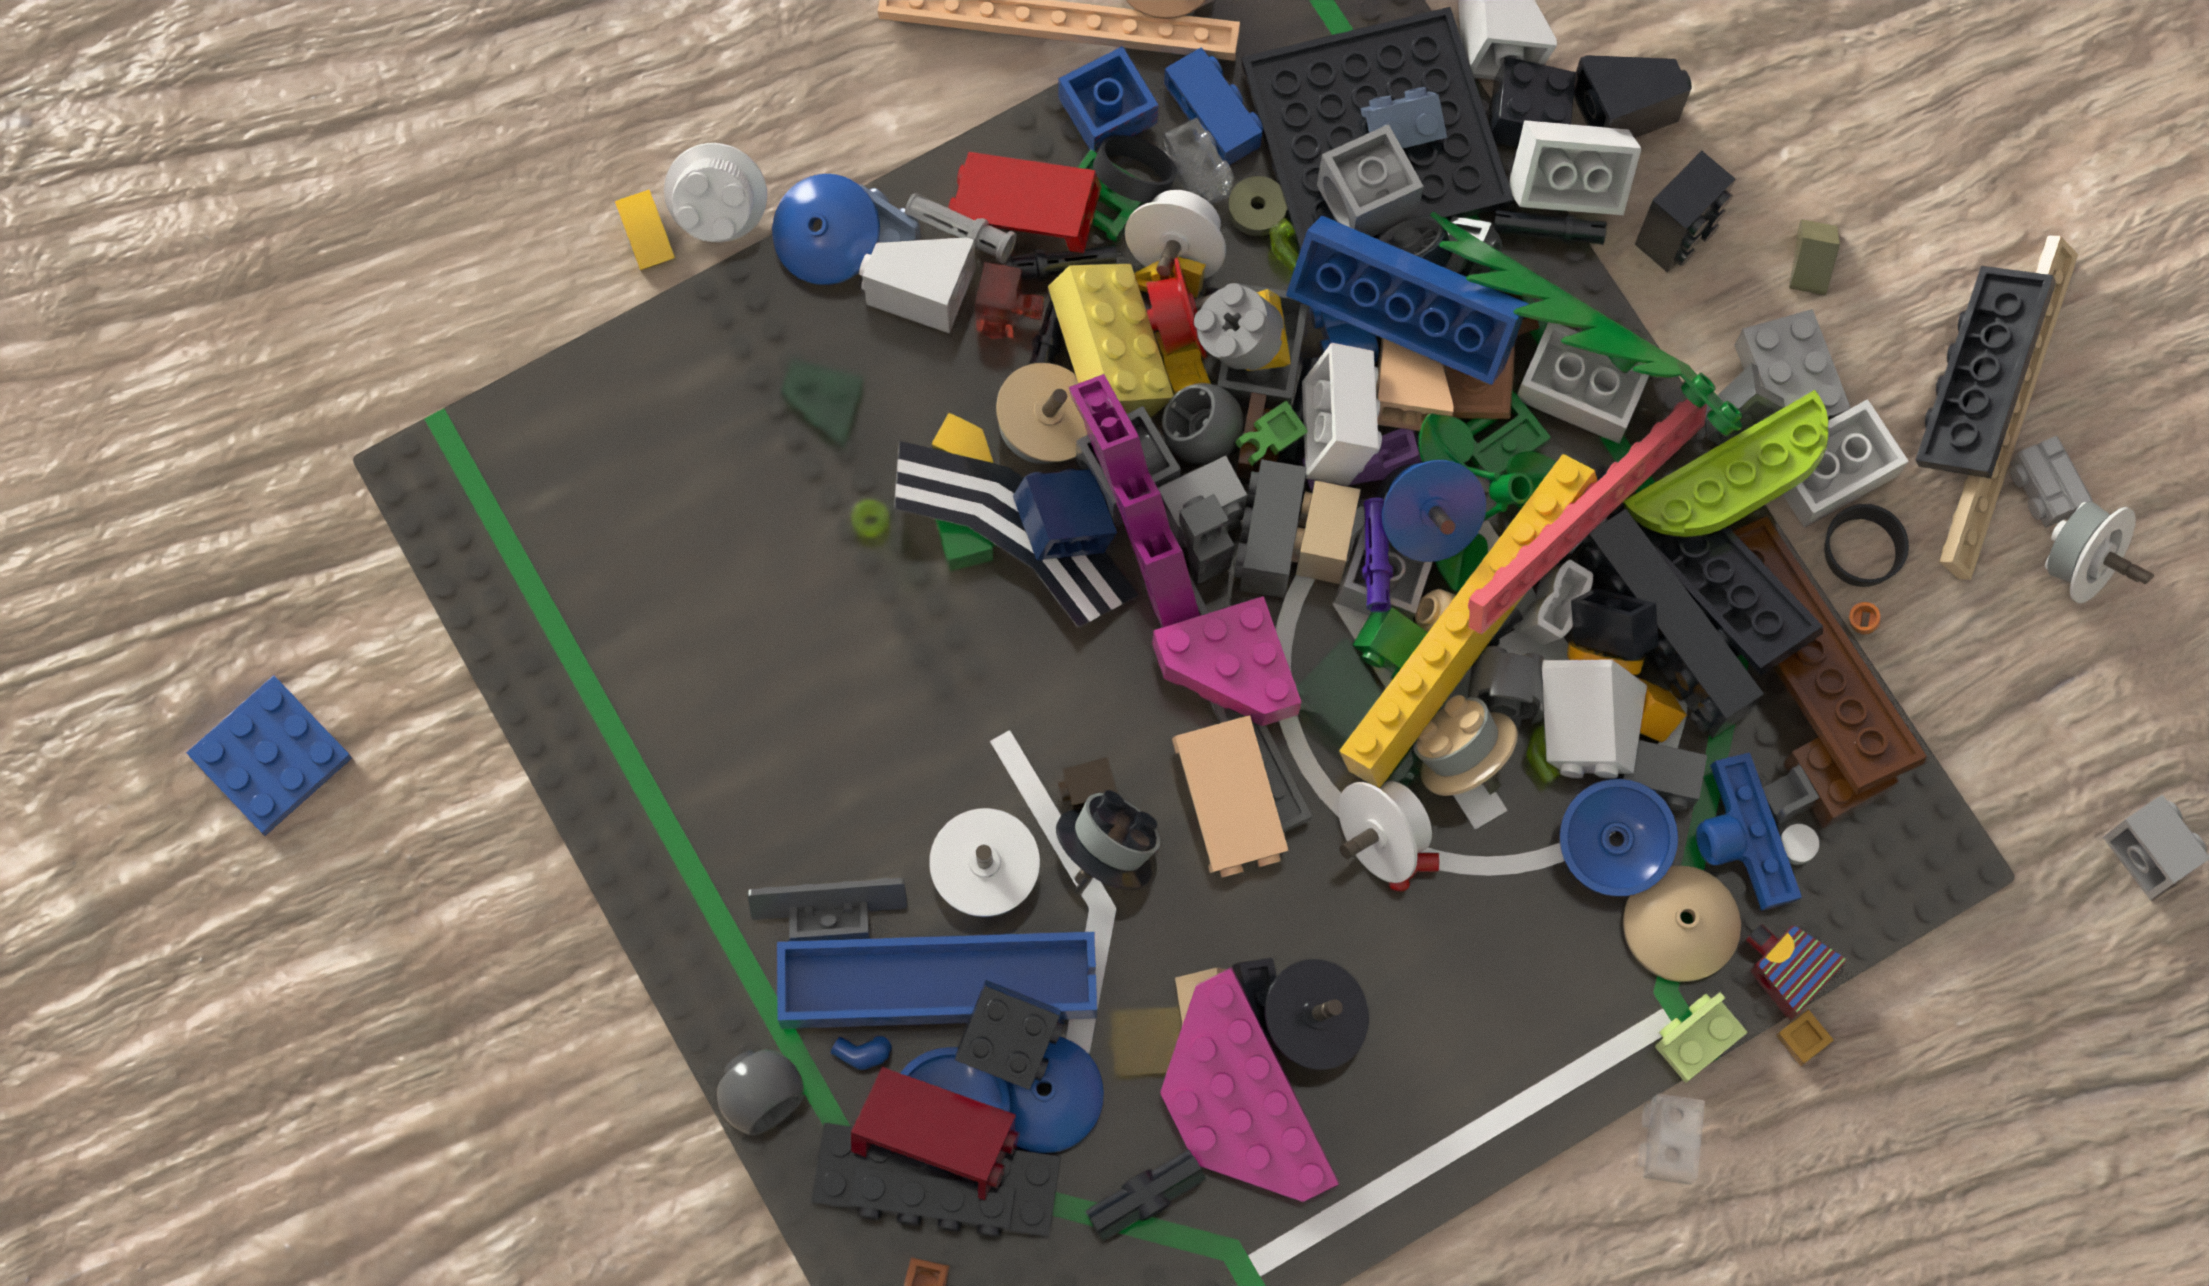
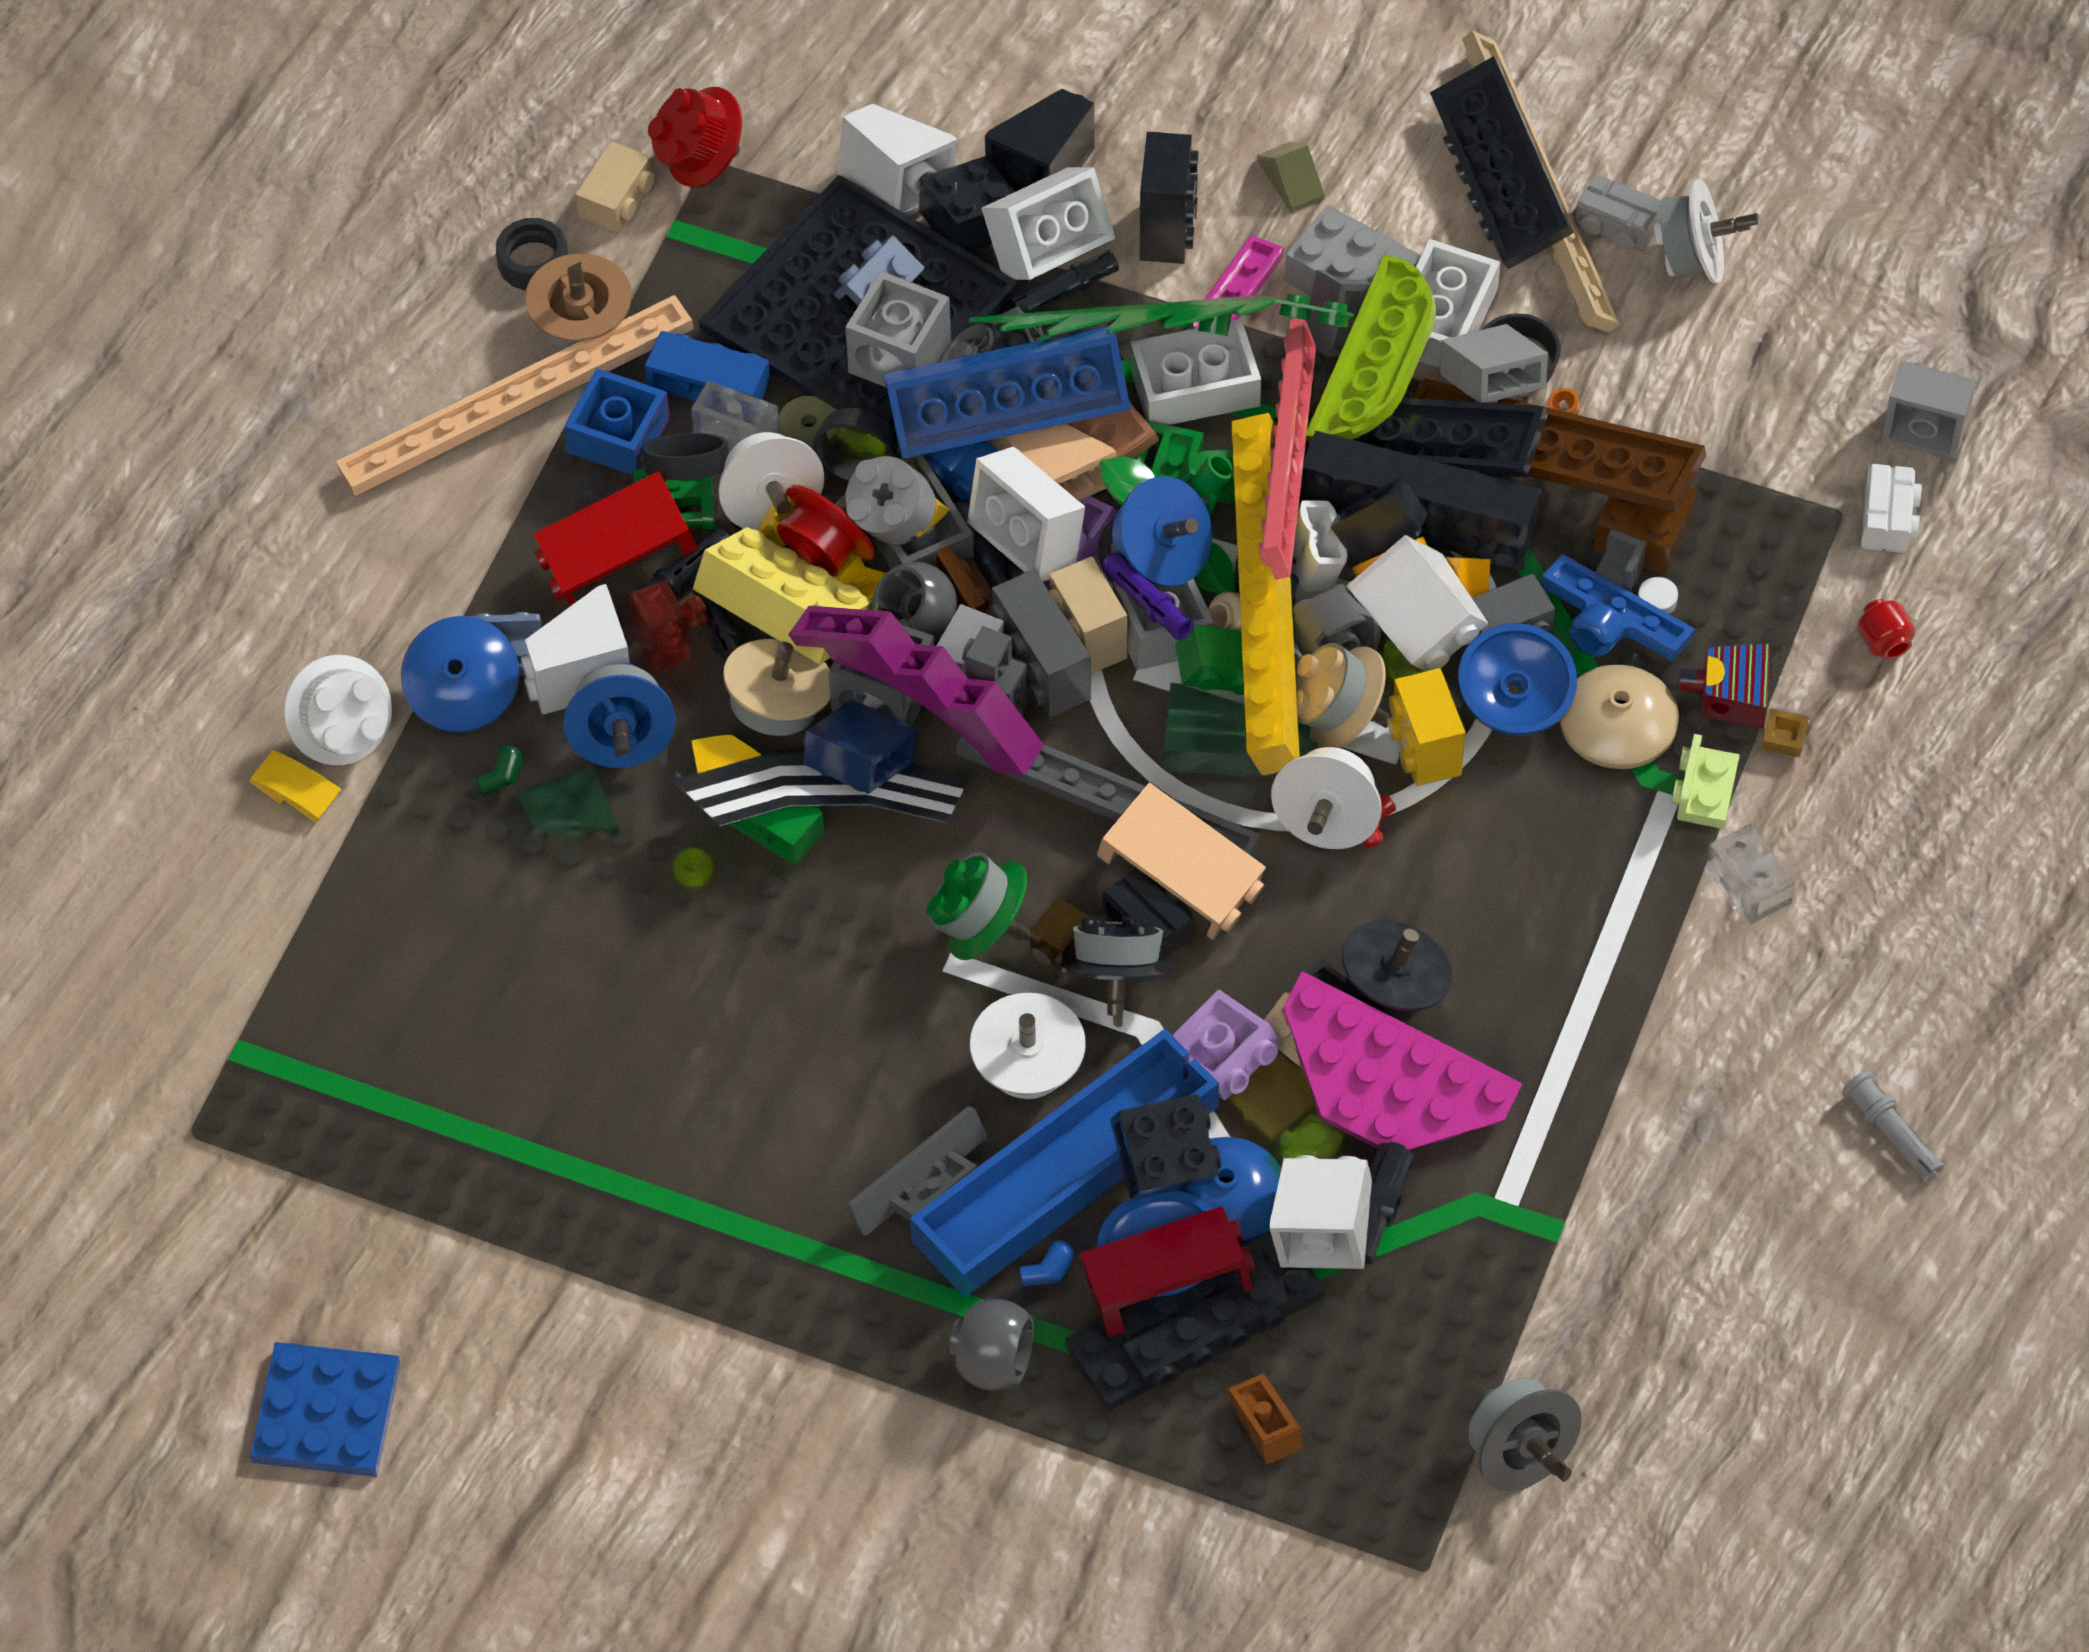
camera: 35 degrees left, 15 degrees down
(798, 333) = (504, 773): none -> dark green arm
(905, 354) = (619, 717): none -> blue piece
(985, 236) = (618, 581): light grey pin -> none
(1042, 717) = (978, 904): none -> green piece
(1086, 1178) = (1322, 1212): none -> white slope
(1136, 973) = (1228, 1042): none -> lavender plate
(1137, 1105) = (1310, 1138): none -> clear neon green bracket
(1173, 809) = (1143, 897): none -> black brick
(1231, 661) = (1096, 758): dark pink brick -> none
(1256, 260) = (836, 462): none -> black tyre
(1275, 431) = (982, 565): bright green plate -> none
(1514, 821) = (1426, 727): none -> yellow brick
(1696, 321) = (1246, 271): none -> dark pink tile
(1824, 550) = (1493, 364): none -> light grey brick
(1961, 1011) = (1886, 628): none -> red head
(2054, 905) = (1889, 507): none -> white brick

